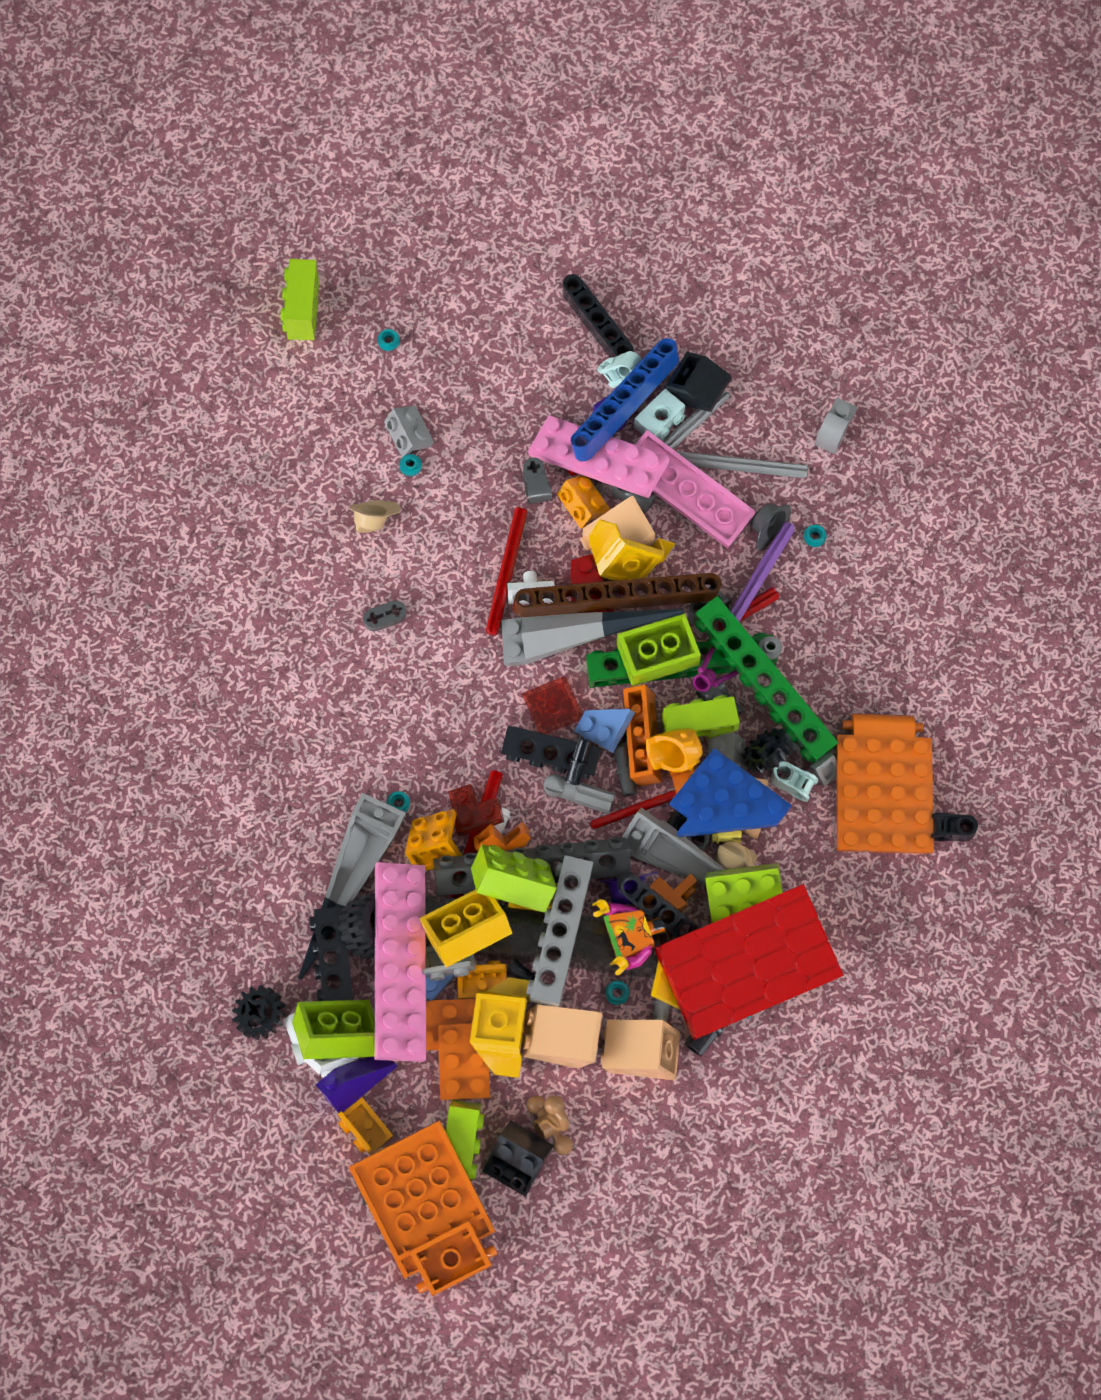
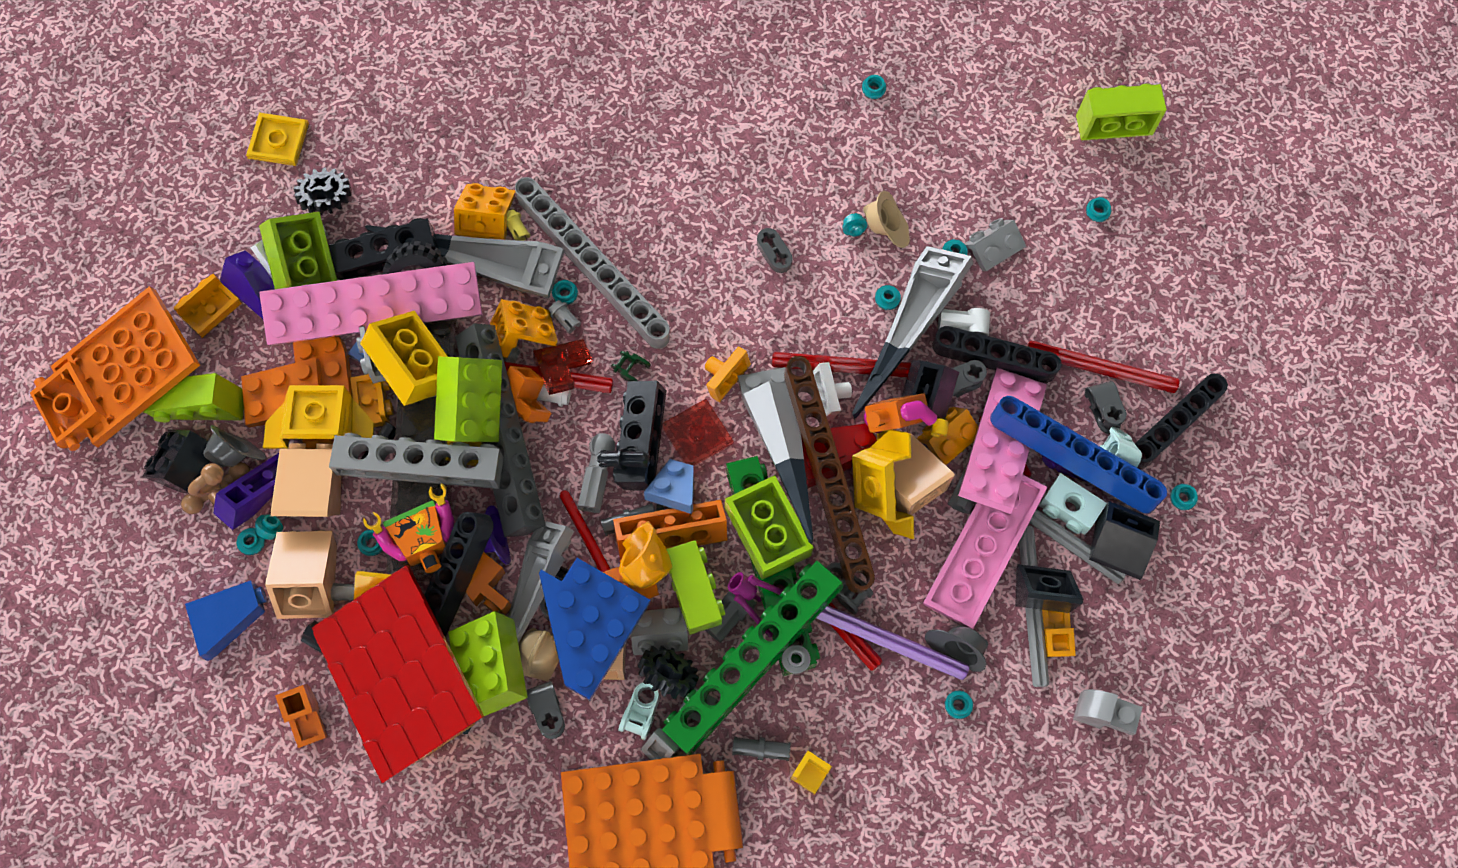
camera: 80 degrees right, 0 degrees up
(188, 1057) = (277, 139): none -> yellow tile
(229, 497) = (874, 80): none -> teal plate
(303, 865) = (482, 211): none -> light orange bracket
(323, 839) = (516, 226): none -> light yellow pin
(372, 543) = (854, 225): none -> teal plate
(377, 764) = (597, 272): none -> light grey beam
(423, 805) = (564, 316): none -> light grey pin
(446, 534) = (887, 304): none -> teal plate
(448, 490) = (930, 288): none -> light grey plate
(483, 465) = (973, 320): none -> white piece
(486, 759) = (634, 359): none -> dark green piece
(499, 673) = (726, 373): none -> light orange tile
(516, 439) = (1008, 350): none -> black beam
(518, 1104) = (229, 449): none -> dark grey piece
(537, 369) = (1111, 368): none -> red axle
(547, 508) = (933, 380): none -> black slope
(550, 1082) = (247, 494): none -> dark purple slope
(573, 528) = (901, 413): none -> torso
(574, 372) = (1104, 403): none -> dark grey piece
(592, 1080) = (268, 526): none -> teal plate
(603, 1106) = (253, 548): none -> teal plate
(662, 325) = (1189, 491): none -> teal plate
(671, 1120) = (224, 616): none -> blue slope
(730, 448) = (1046, 589): none -> black slope
(766, 449) = (1058, 634): none -> light orange slope
(768, 1055) = (302, 712): none -> orange brick
(784, 854) = (545, 705): none -> dark grey piece
(834, 691) = (761, 748): none -> dark grey pin
(857, 656) = (811, 772): none -> yellow panel

